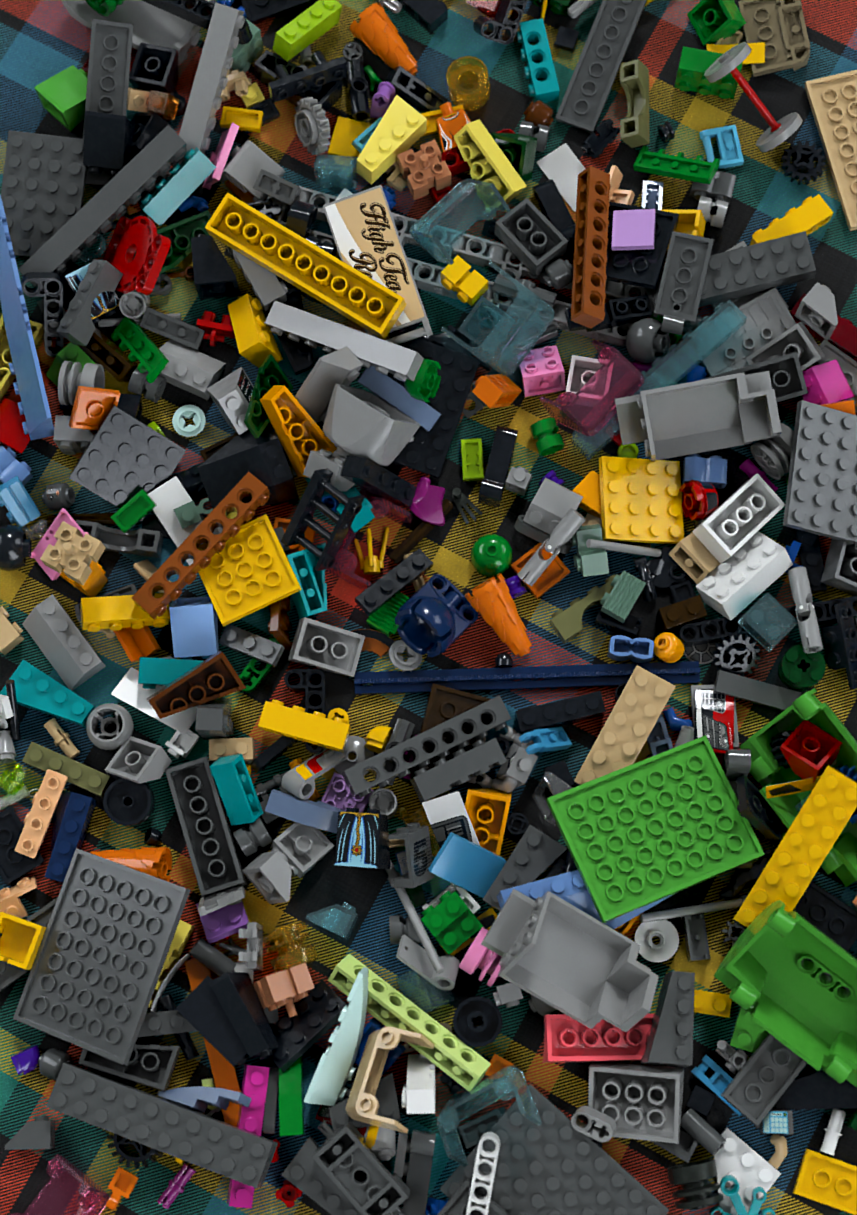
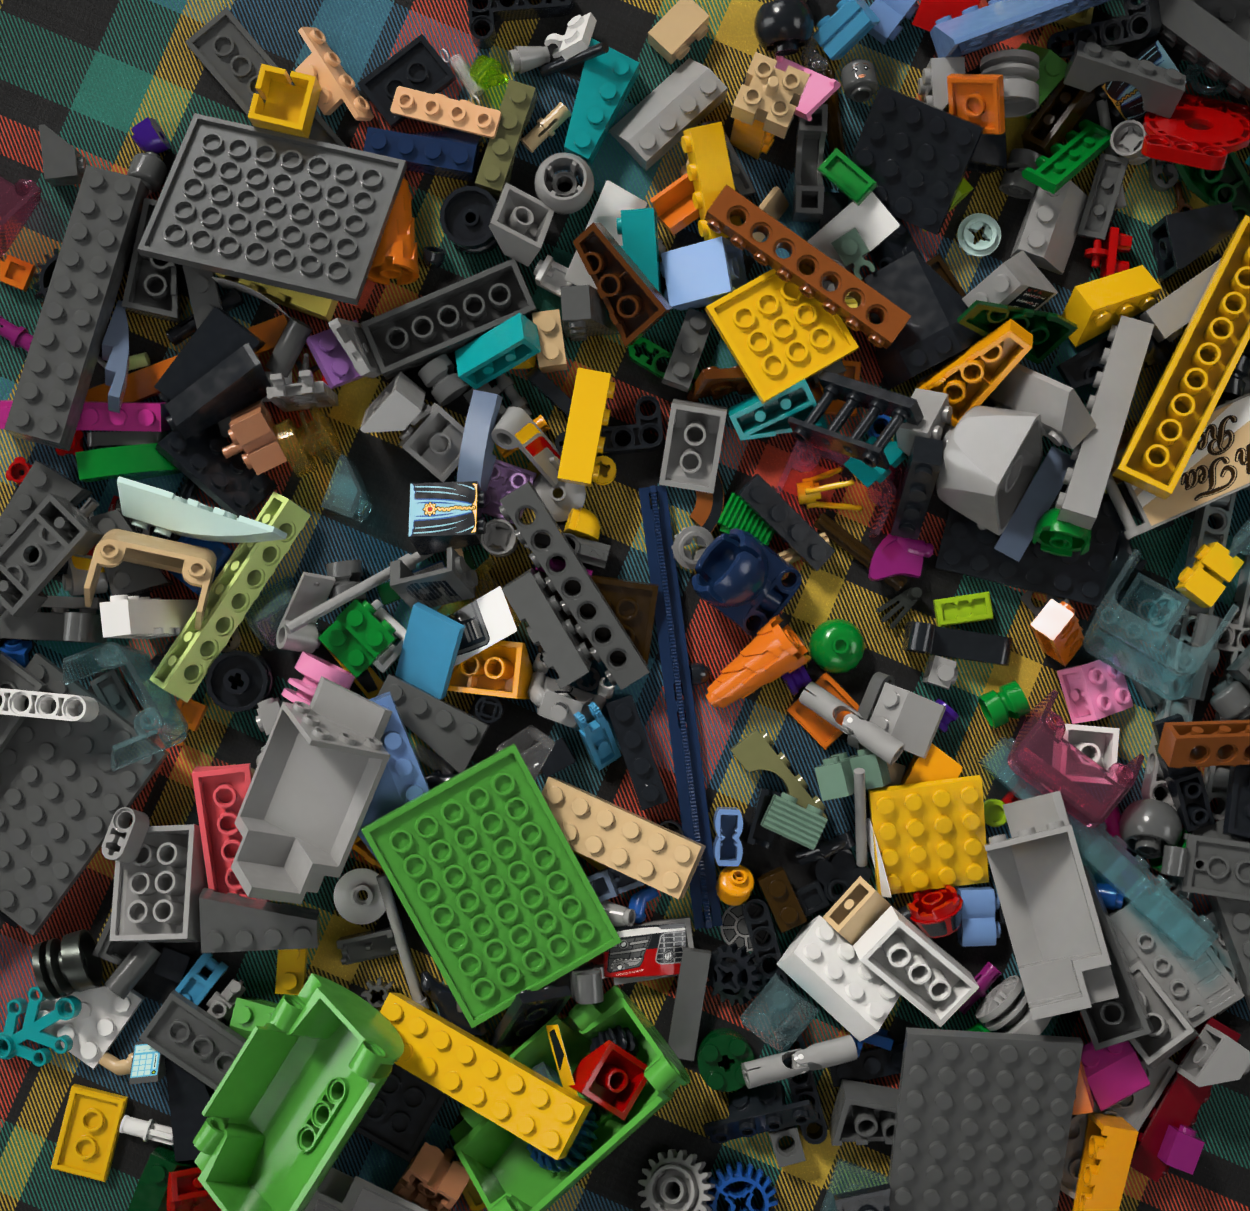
camera: 80 degrees right, 10 degrees up
(671, 536) = (884, 885): none -> white sticker

